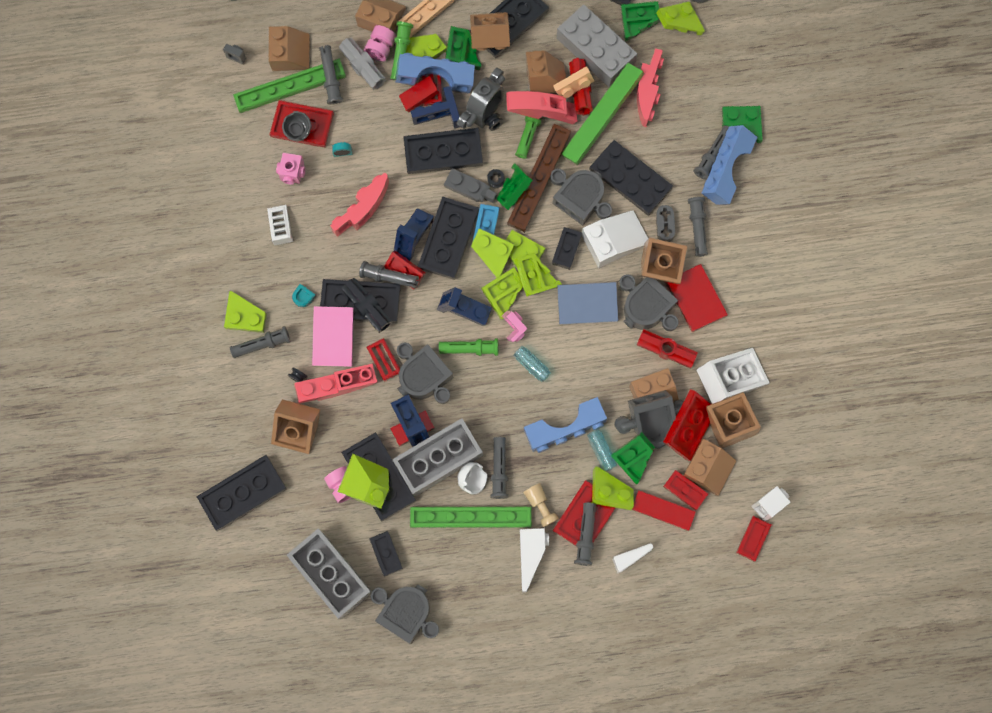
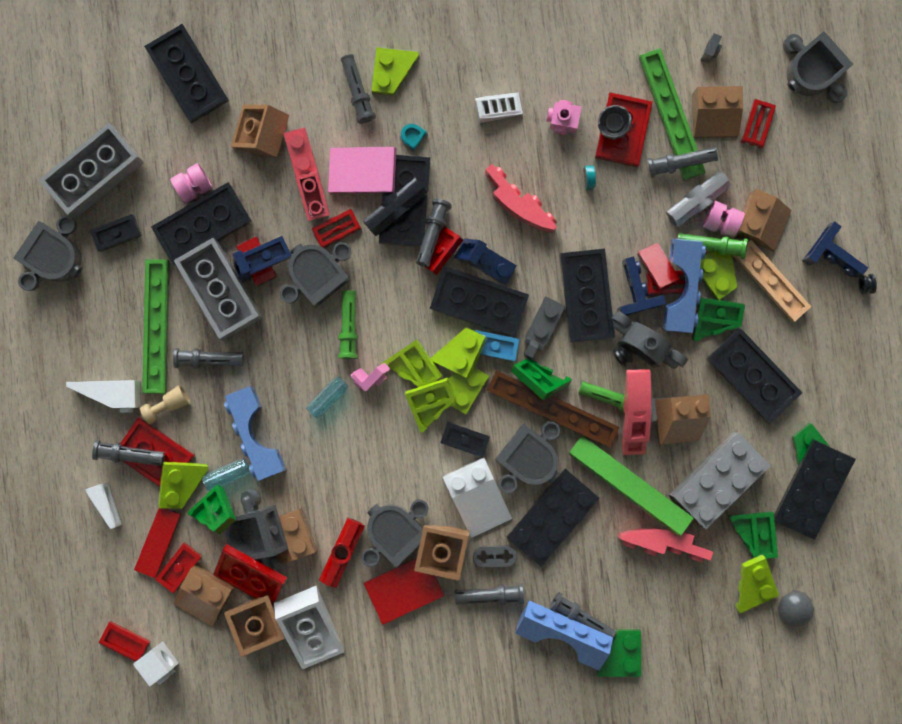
camera: 85 degrees right, 10 degrees up
(294, 24) = (752, 141): none -> red tile
(297, 375) = (317, 131): black bush -> none
(365, 482) = (187, 208): lime slope -> none
(463, 306) = (394, 319): dark blue bracket -> none
(472, 478) = (195, 328): white hair -> none
(490, 31) = (737, 350): medium nougat slope -> none
(499, 173) = (556, 352): black bush -> none
(574, 83) = (667, 457): light nougat plate -> none
(582, 98) = (666, 460): red piece -> none
(587, 303) = (398, 462): sand blue tile -> none

